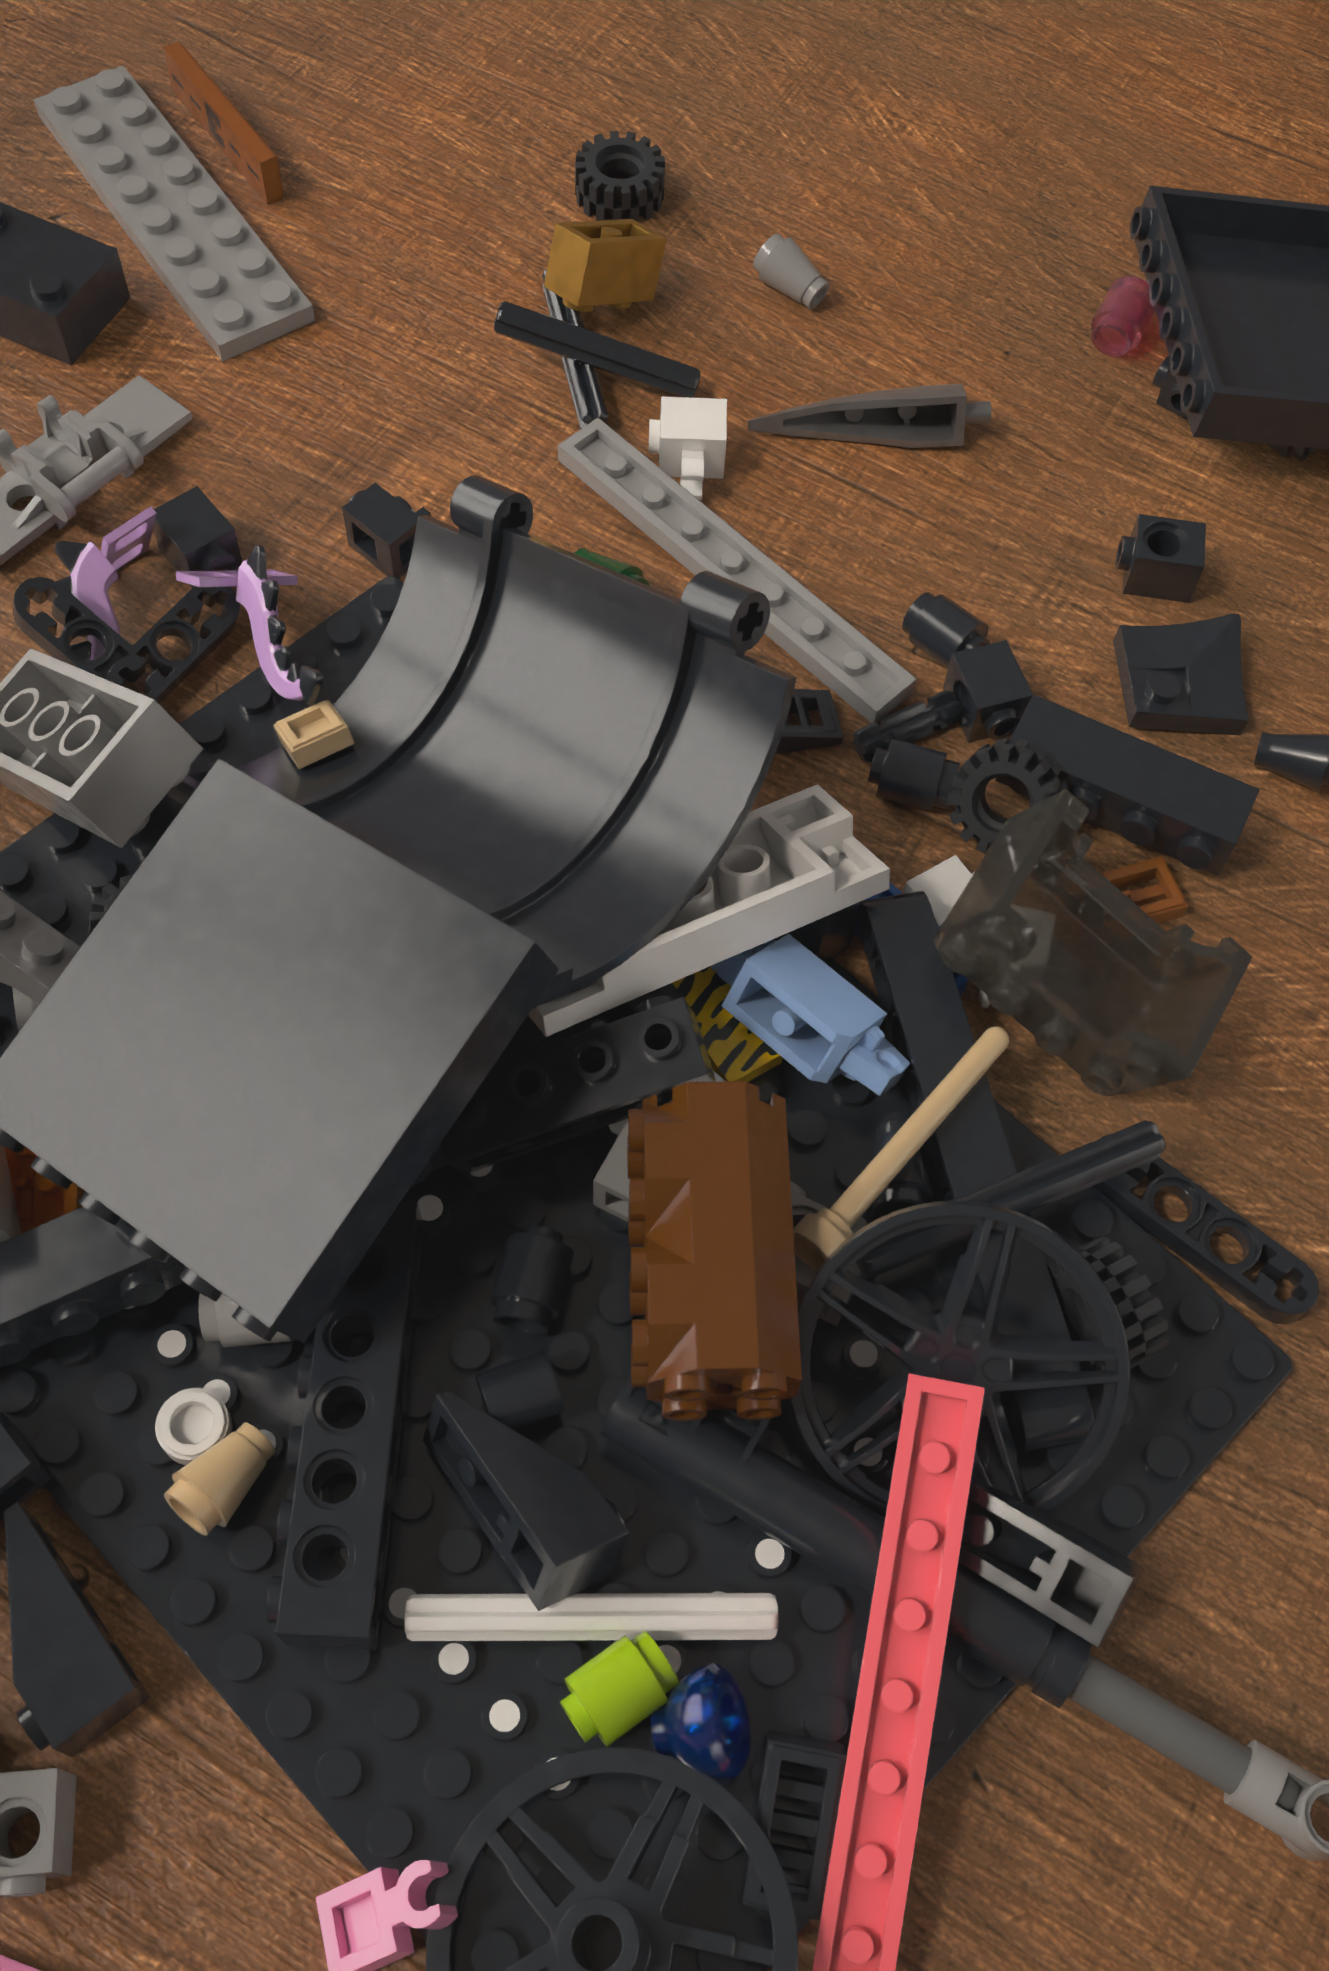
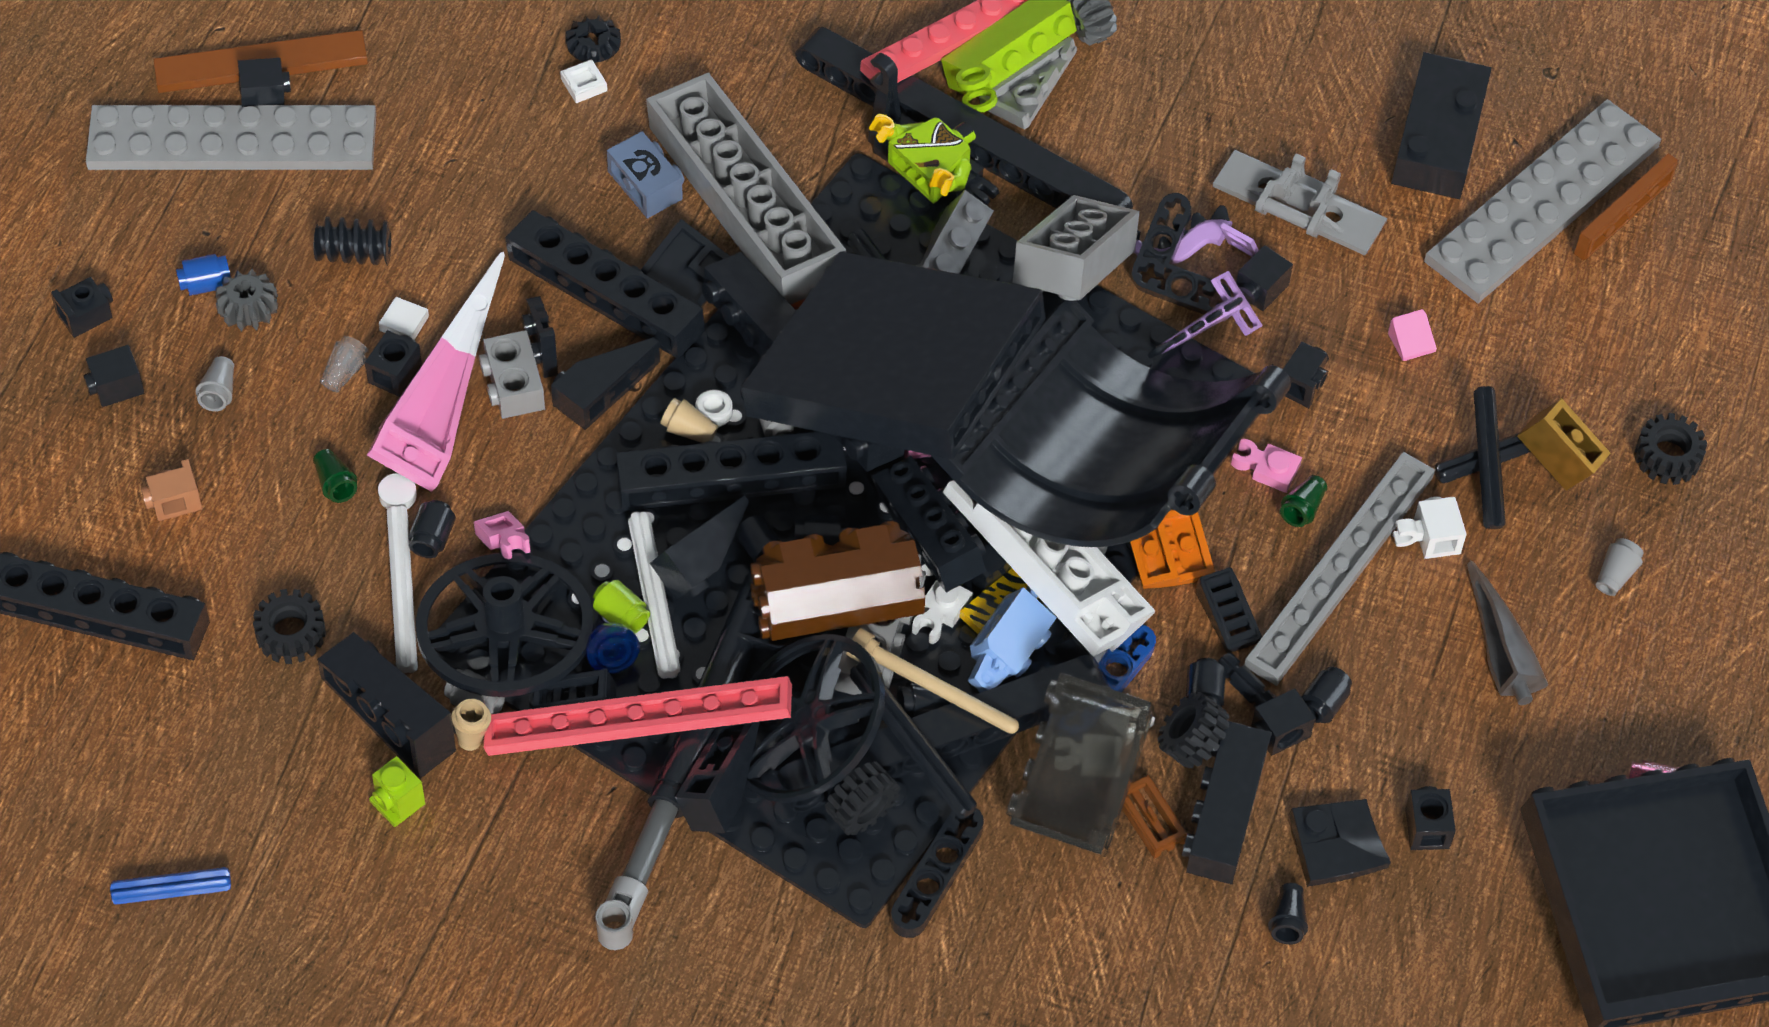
camera: 80 degrees right, 5 degrees down
(313, 733) = (1129, 362): tan tile -> none
(354, 397) = (1412, 335): none -> bright pink slope

